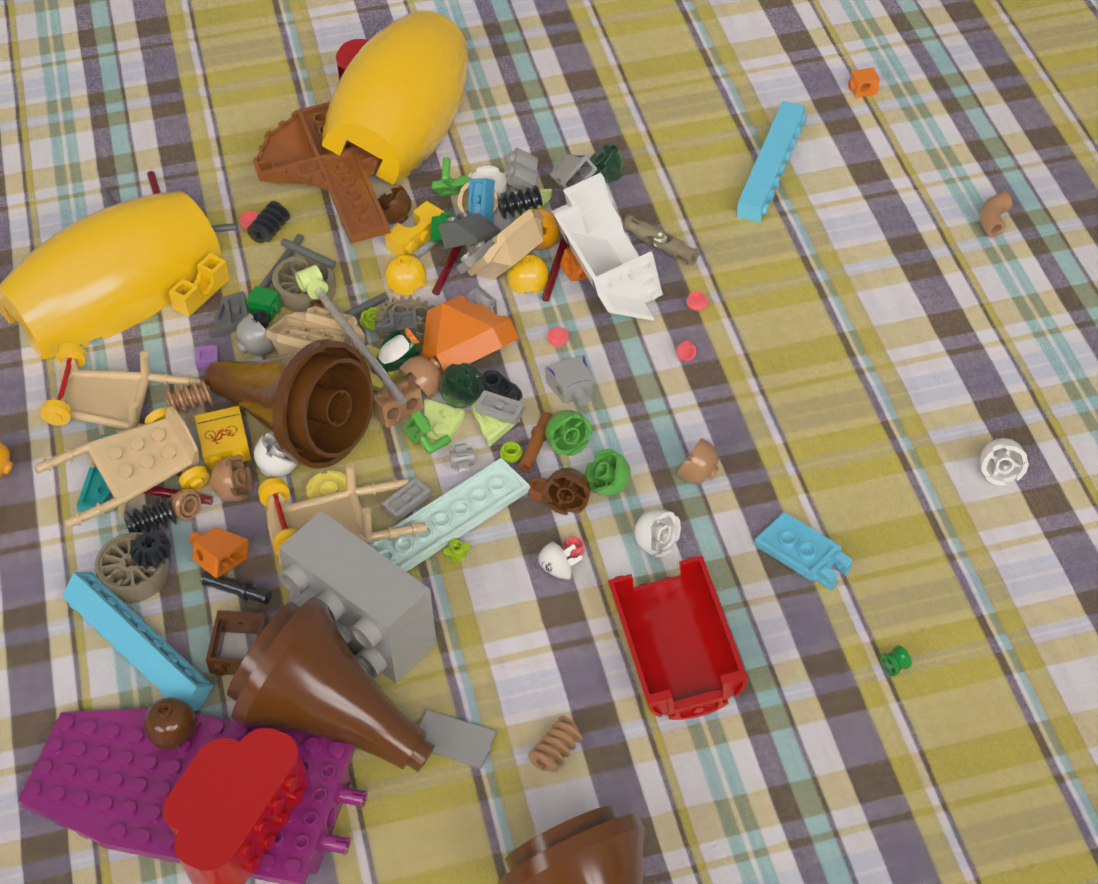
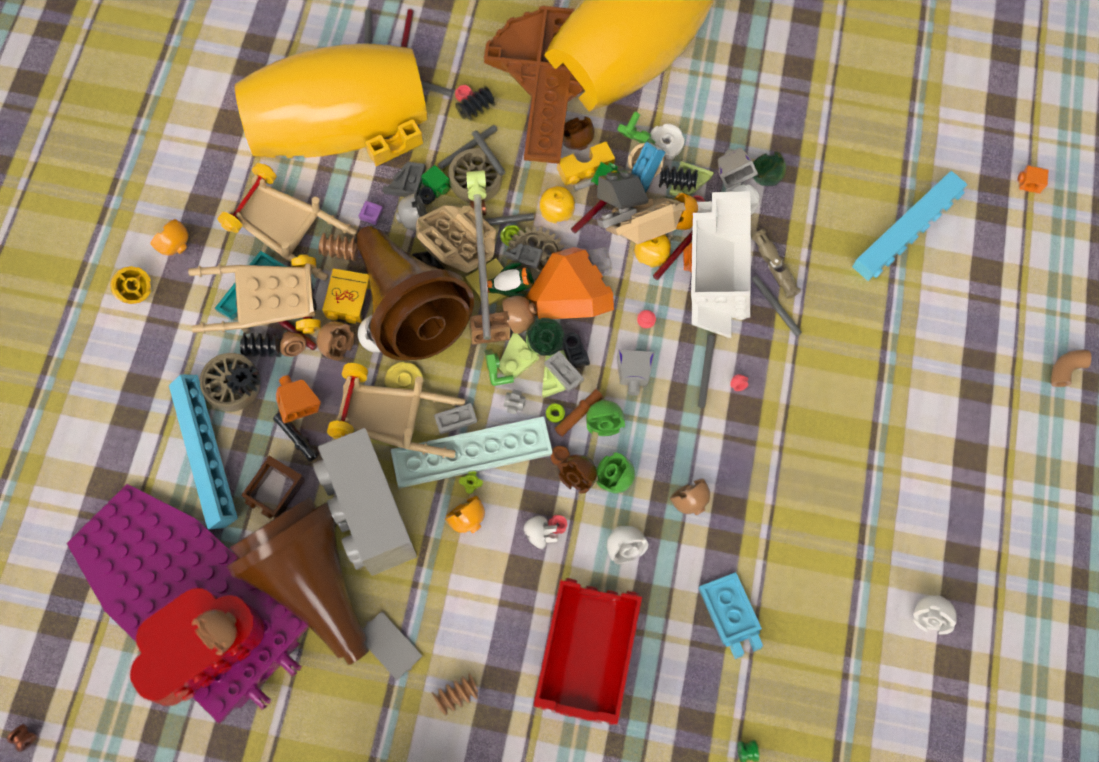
camera: 20 degrees right, 20 degrees up
(169, 723) = (190, 540): reddish brown cylinder -> none
(258, 759) = (216, 629): none -> medium nougat cylinder
(472, 577) = (466, 516): none -> light orange cylinder
(521, 169) = (698, 143): light grey brick -> none
(646, 356) = (706, 371): none -> dark grey bar
(688, 277) = (776, 305): none -> dark grey bar
(697, 301) = (773, 337): coral plate -> none

